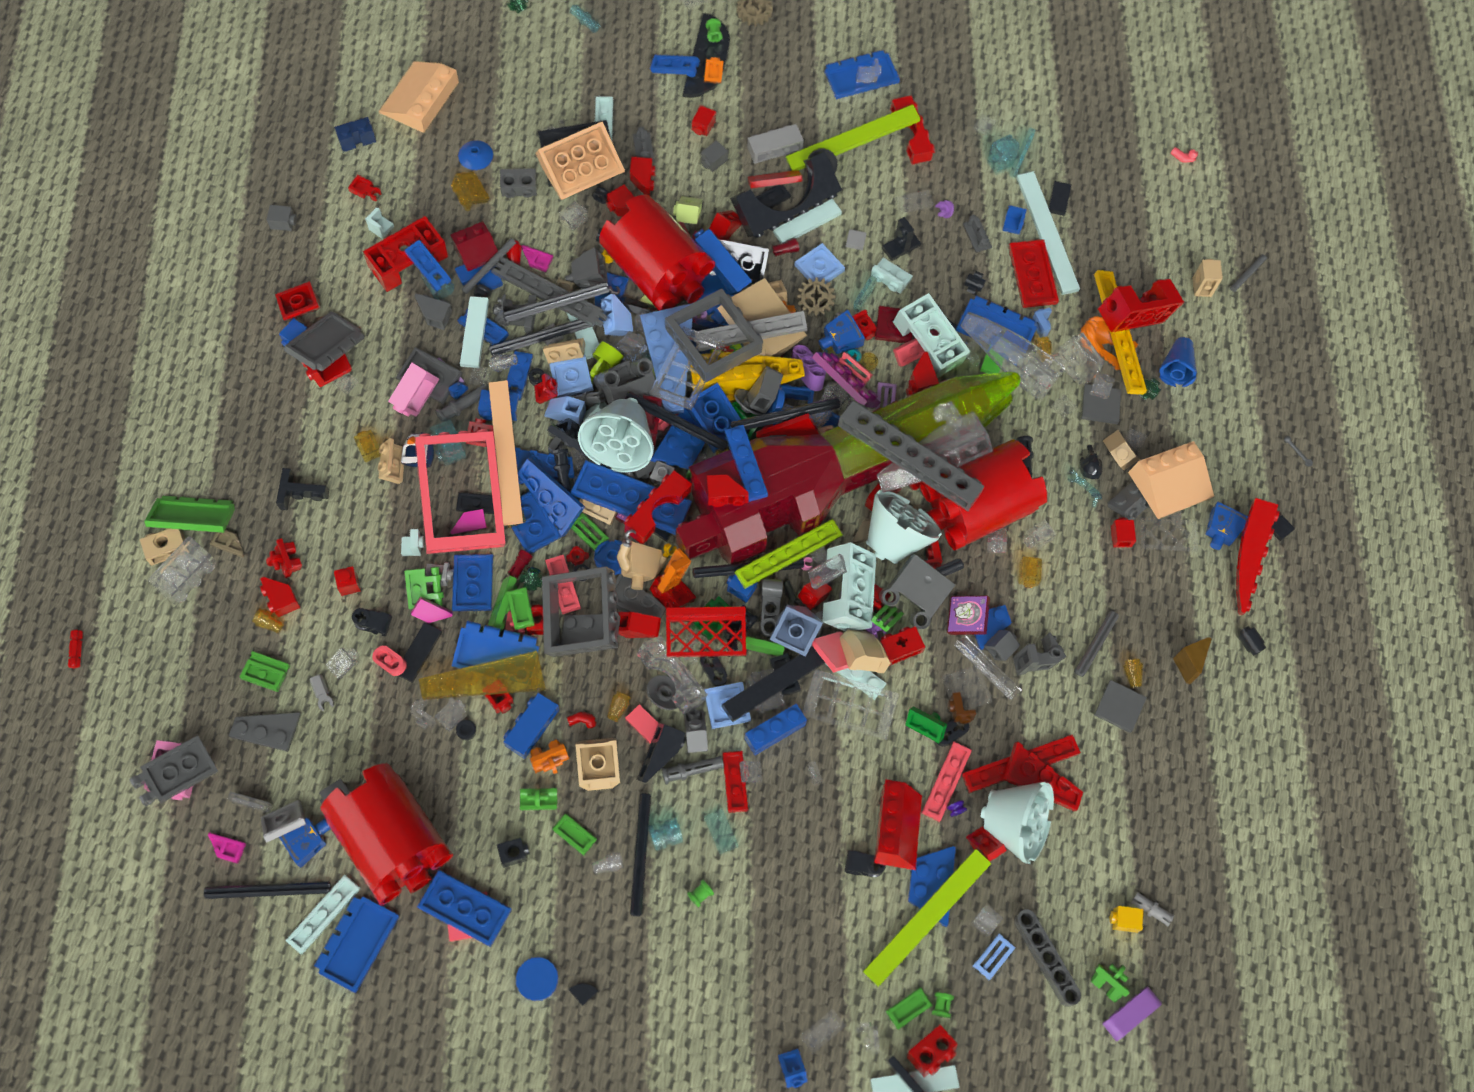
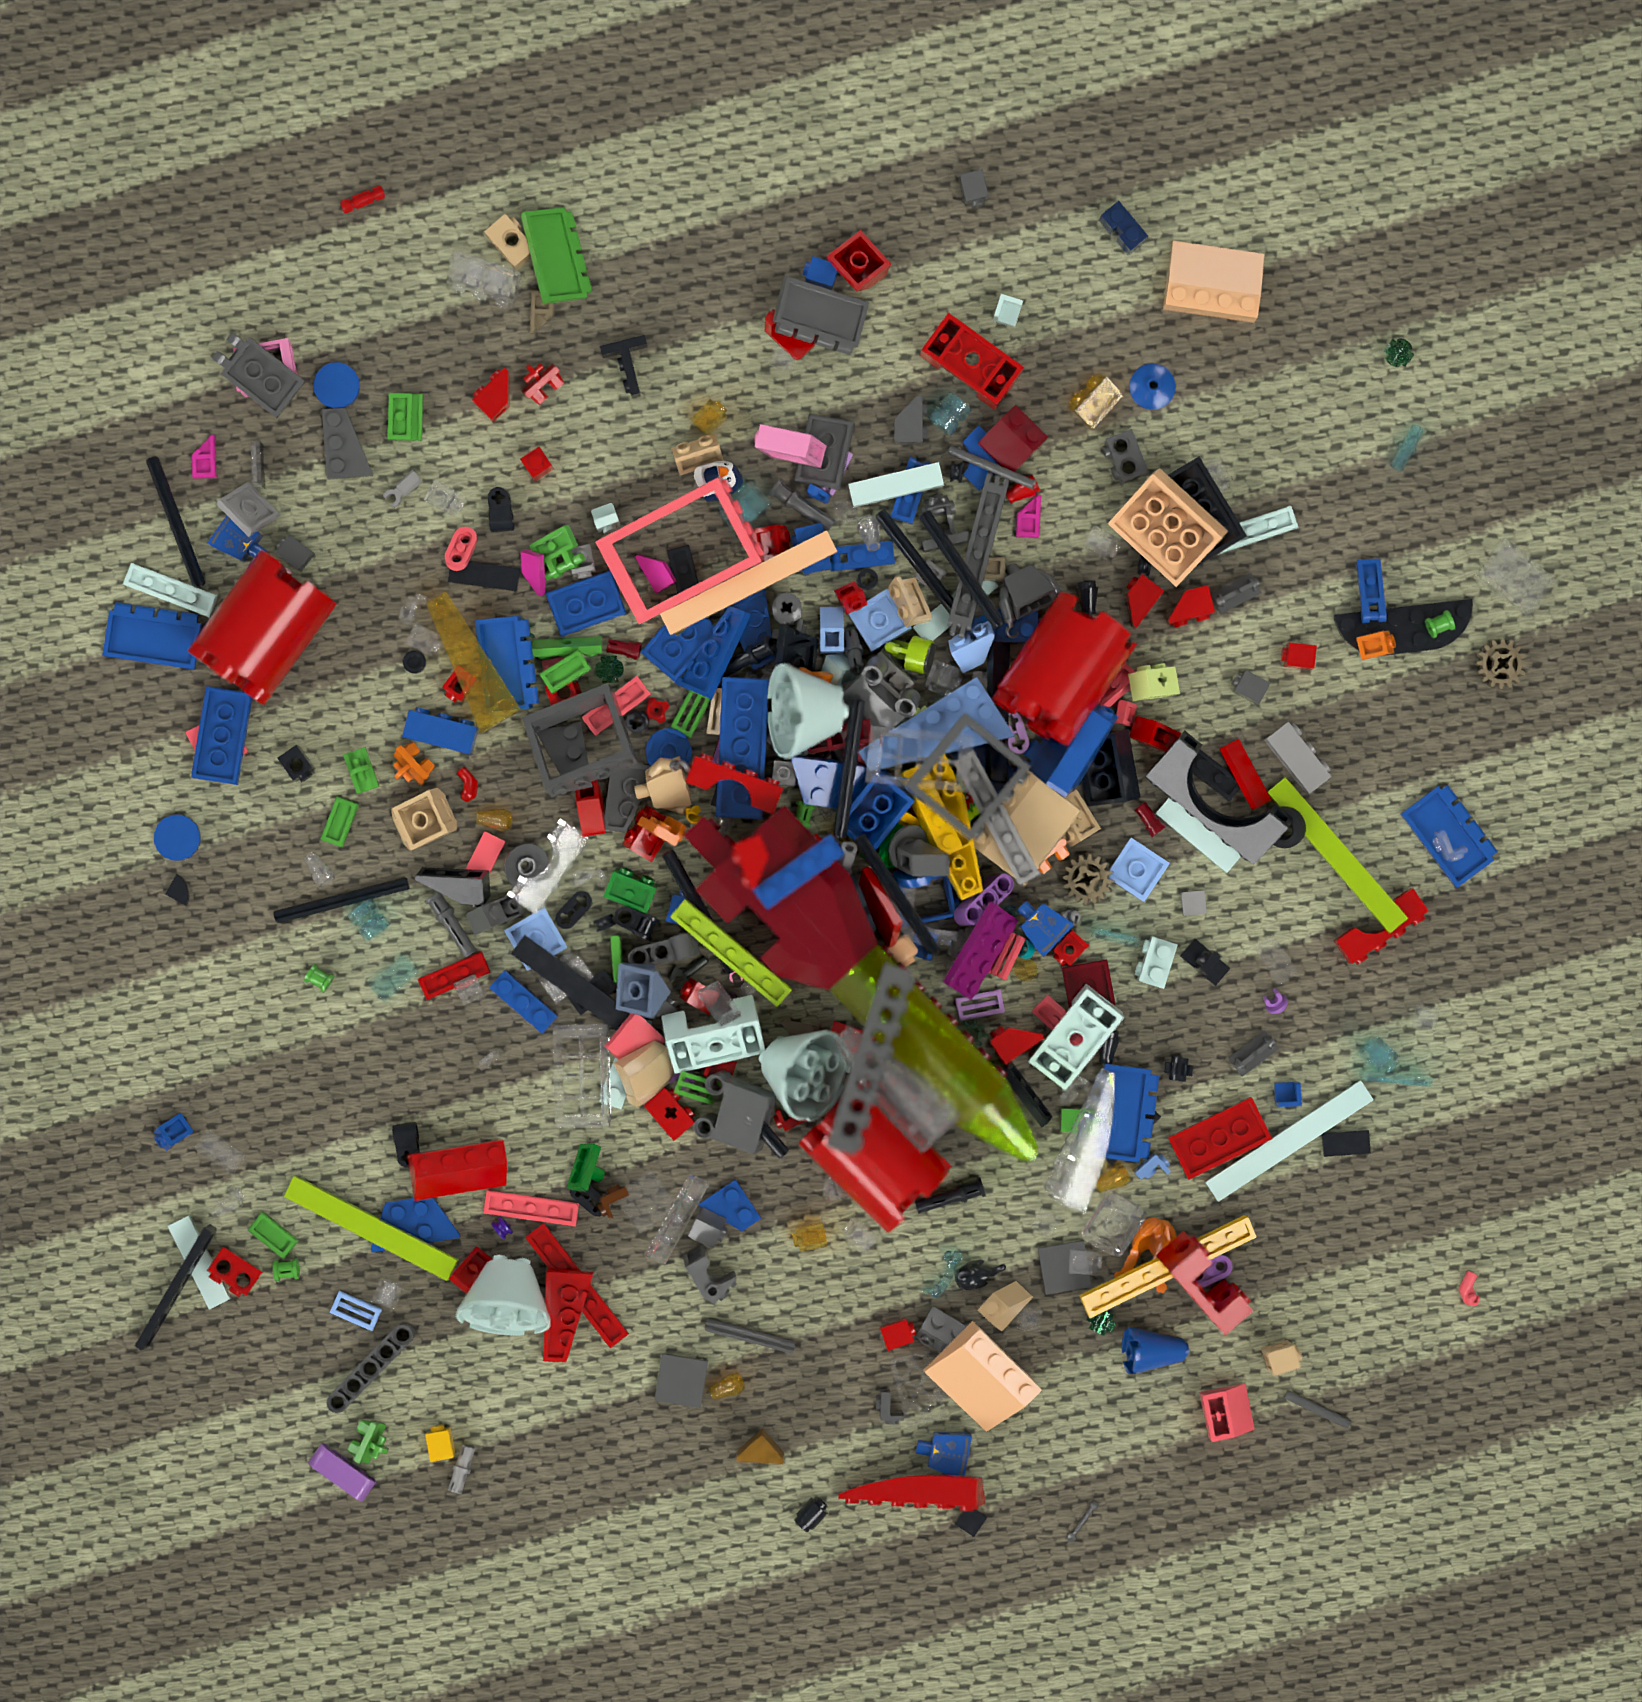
camera: 75 degrees right, 20 degrees up
(214, 718) = (336, 385): none -> blue tile
(268, 621) = (463, 393): clear yellow cone -> none
(362, 187) = (1052, 267): red plate -> none
(427, 265) = (954, 398): blue plate -> none
(536, 433) = (787, 600): none -> dark grey piece
(702, 615) = (624, 883): red fence -> none
(950, 414) = (936, 1093): clear bracket -> none
(968, 615) = (732, 1179): tile -> none
(1176, 559) = (883, 1404): none -> dark grey bracket
(1238, 329) = (1227, 1412): none -> coral slope

